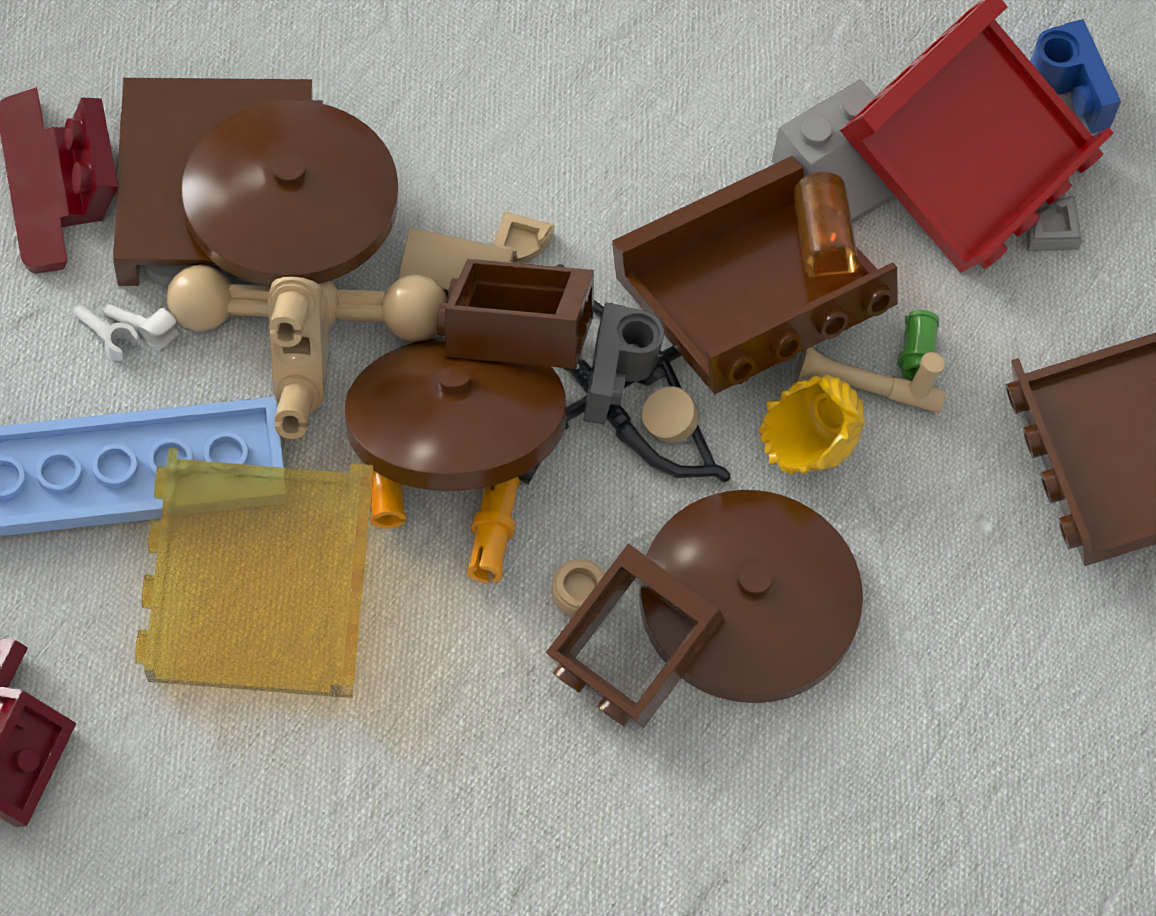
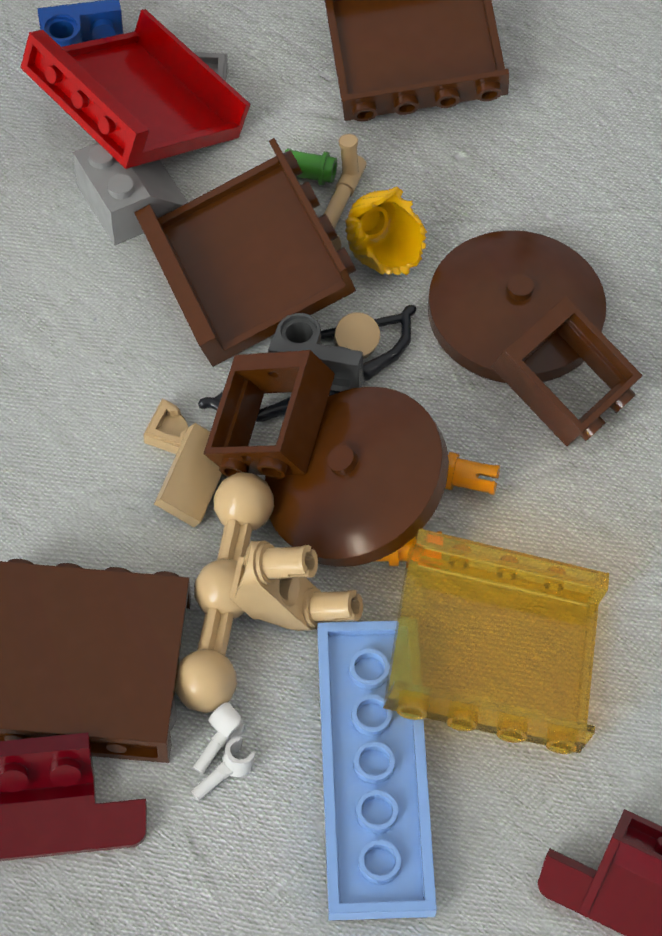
camera: 80 degrees left, 5 degrees down
(290, 192) = (124, 580): reddish brown dish -> none
(574, 583) = (505, 420): tan tile -> none
(825, 225) = (210, 196): clear orange brick -> none

